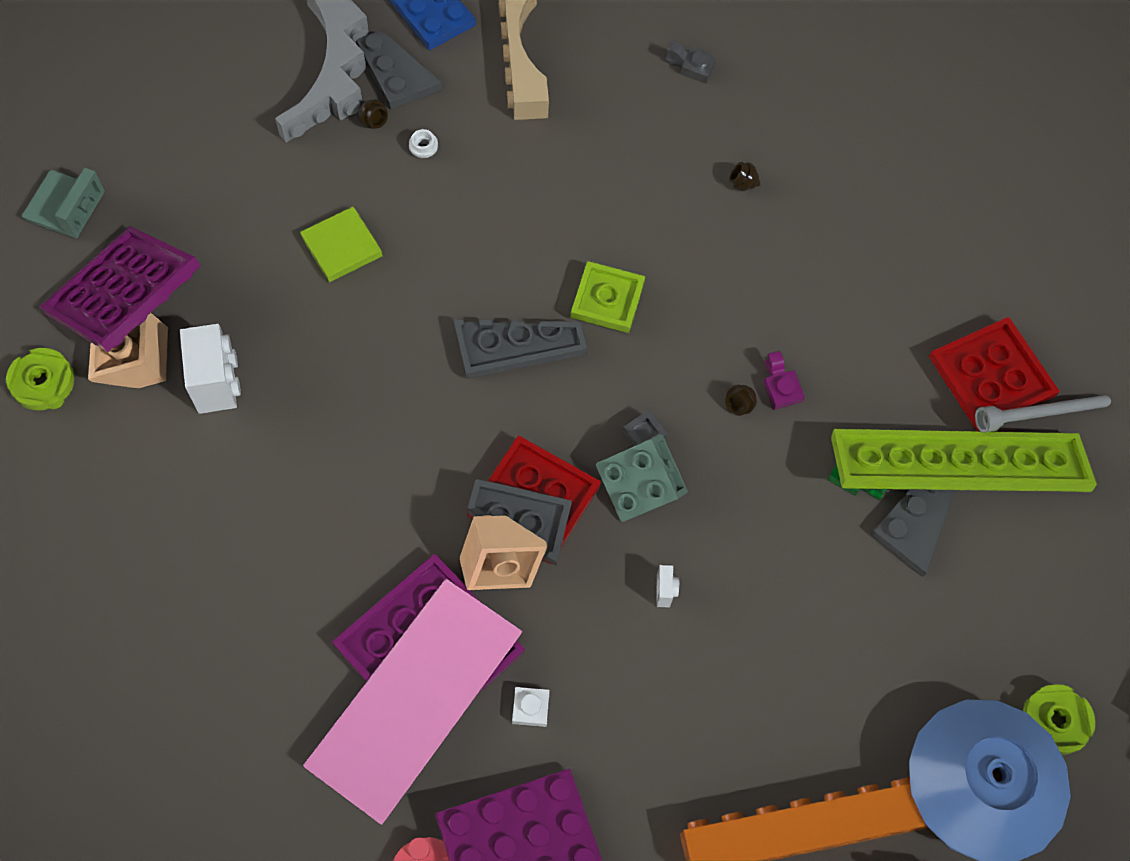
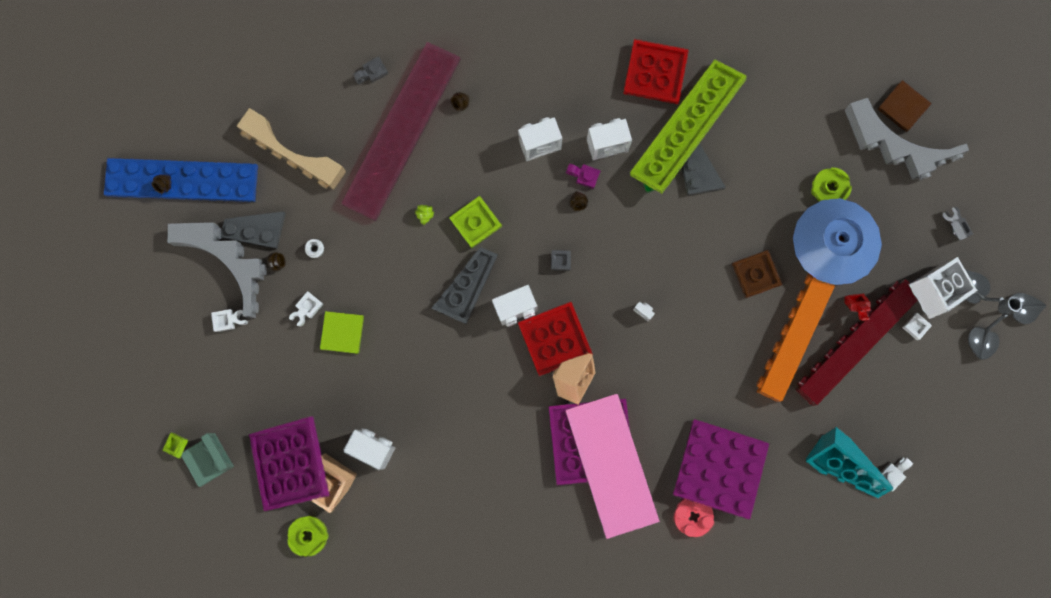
camera: 45 degrees left, 15 degrees up
(58, 157) = (175, 445): none -> lime tile
(257, 109) = (225, 320): none -> white plate
(343, 184) = (307, 306): none -> white plate
(530, 706) = (652, 415): white plate -> none
(535, 511) = (565, 347): dark grey wing -> none
(536, 411) = (515, 306): none -> white brick
(568, 232) = (424, 213): none -> lime plate
(642, 478) = (585, 280): sand green bracket -> none
(648, 139) = (401, 131): none -> clear pink plate
(778, 291) = (540, 138): none -> white brick
(846, 707) = (756, 274): none -> reddish brown tile
(852, 372) = (609, 139): none -> white brick
(991, 418) = (680, 94): light grey piece -> none

